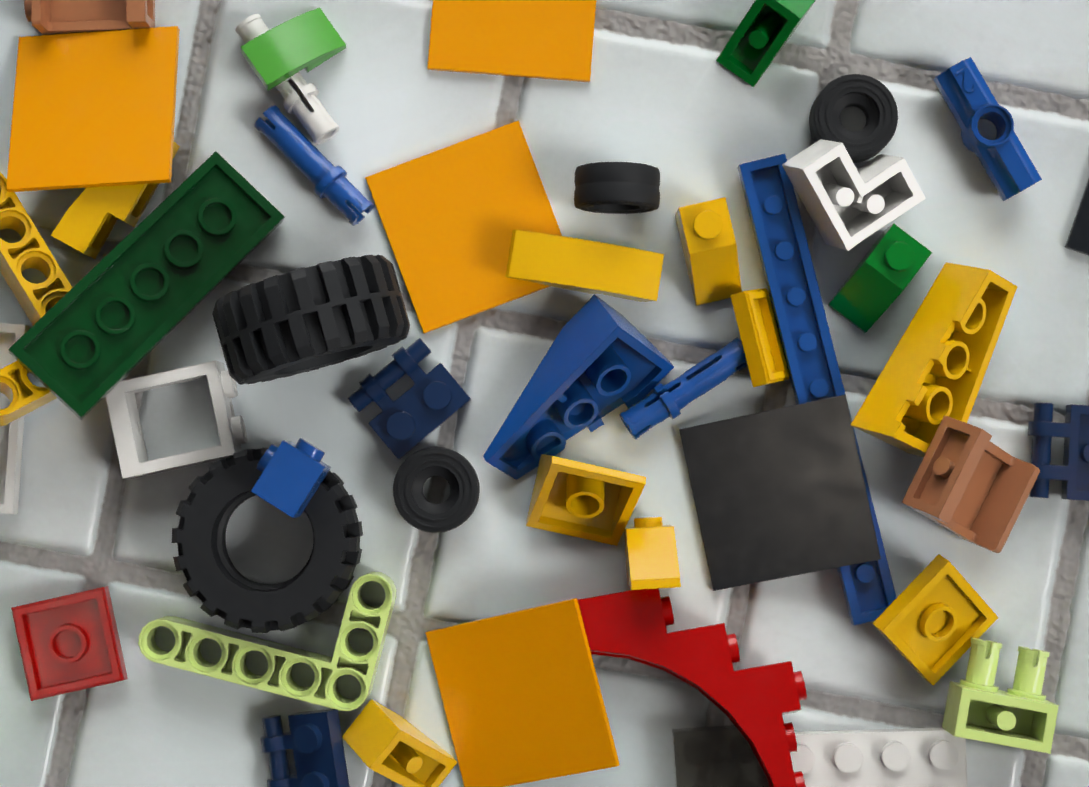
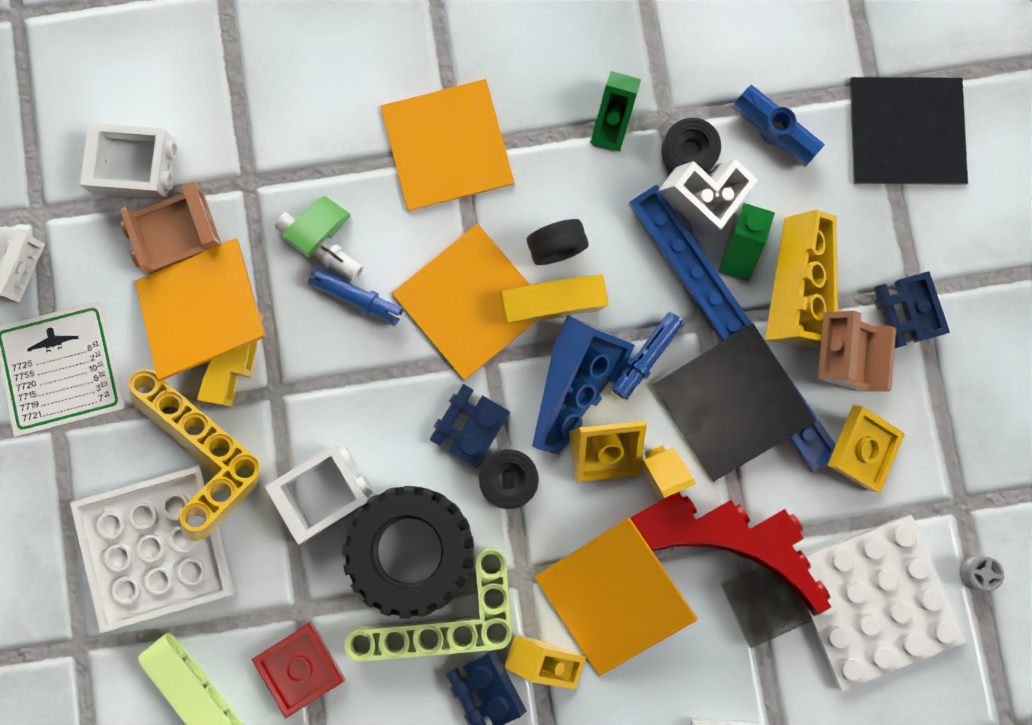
camera: 20 degrees left, 5 degrees down
(146, 285) = (270, 412): dark green plate -> none
(290, 475) = (410, 501): blue brick -> none
(310, 318) = (388, 392): black tyre -> none
(709, 250) = (630, 262): yellow slope -> none
(760, 337) = (683, 306): yellow tile -> none
(1006, 718) = (939, 496): yellowish green brick -> none

